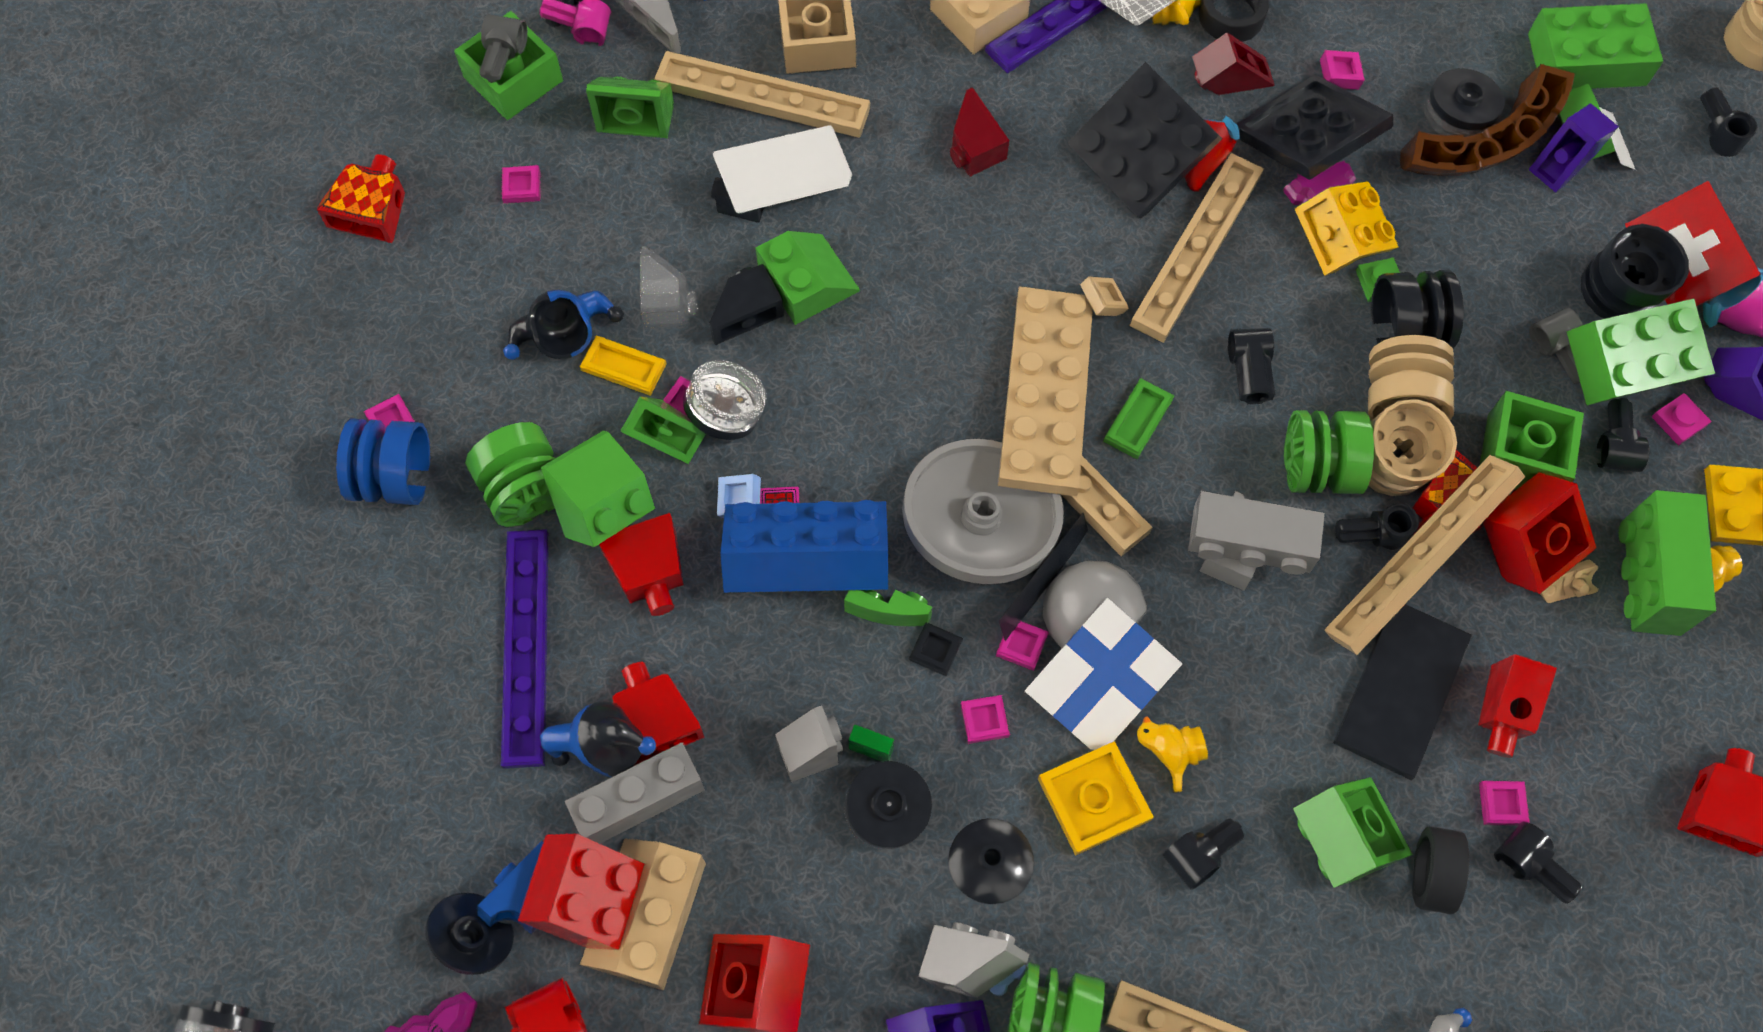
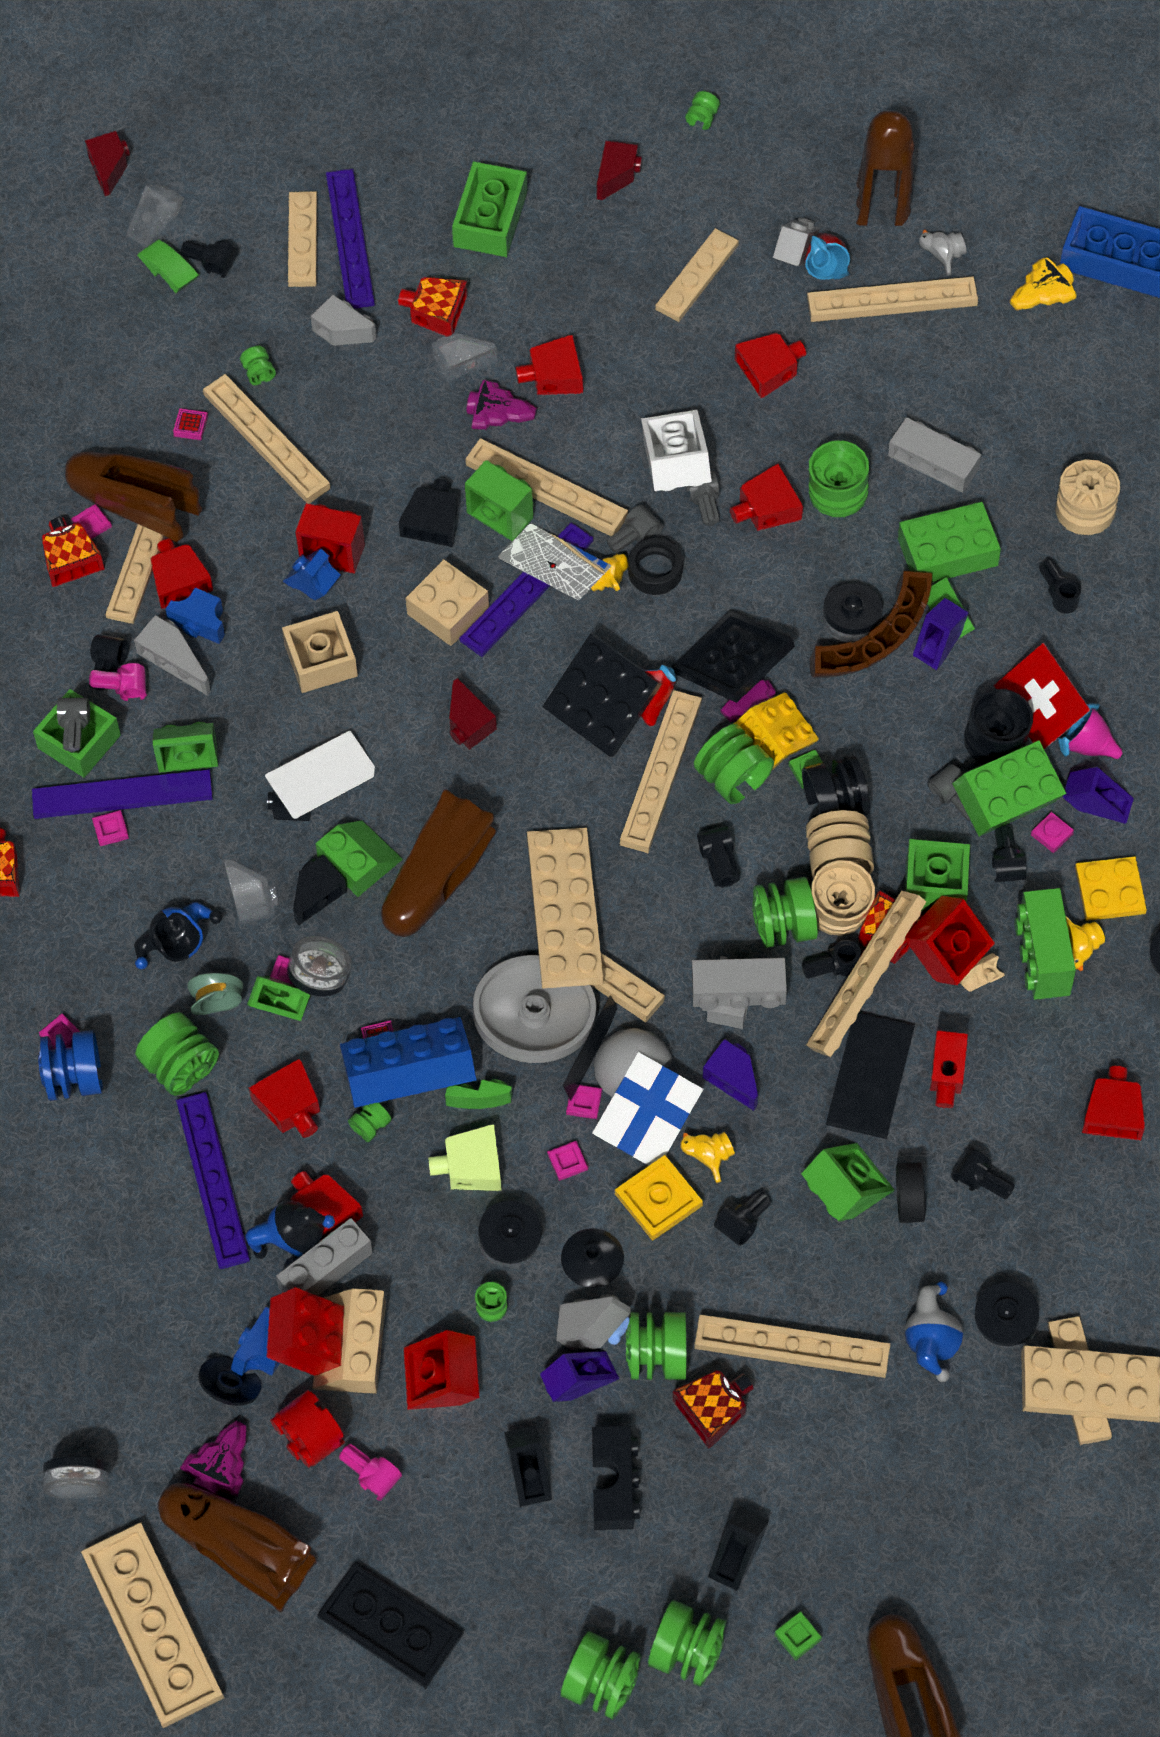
camera: 10 degrees left, 5 degrees down
(545, 147) = (122, 794): none -> dark purple tile
(587, 407) = (215, 992): none -> sand green piece
(596, 490) = (241, 1052): bright green slope -> none
(623, 365) = (231, 956): yellow tile -> none
(737, 490) = (344, 1032): light blue plate -> none
(741, 612) = (369, 1121): none -> bright green wheel
(763, 94) = (288, 714): tan plate -> none
(810, 744) = (443, 1201): light grey slope -> none
(840, 890) = (487, 1296): none -> bright green wheel
(857, 691) = (470, 1160): none -> yellowish green torso
(871, 743) = (487, 1193): green tile -> none
(900, 302) = (437, 864): none -> reddish brown piece
(936, 649) = (520, 1118): black tile -> none
(1104, 296) = (595, 826): tan tile -> none
(1138, 418) = (640, 916): bright green tile -> none
(1224, 649) = (732, 1073): none -> dark purple slope
(1231, 67) = (662, 617): dark red slope -> none
(1292, 248) = (732, 759): none -> bright green wheel
(1342, 69) = (751, 601): dark pink plate -> none
(1503, 802) = (954, 1140): dark pink tile -> none
(1619, 144) = (977, 616): white sticker -> none

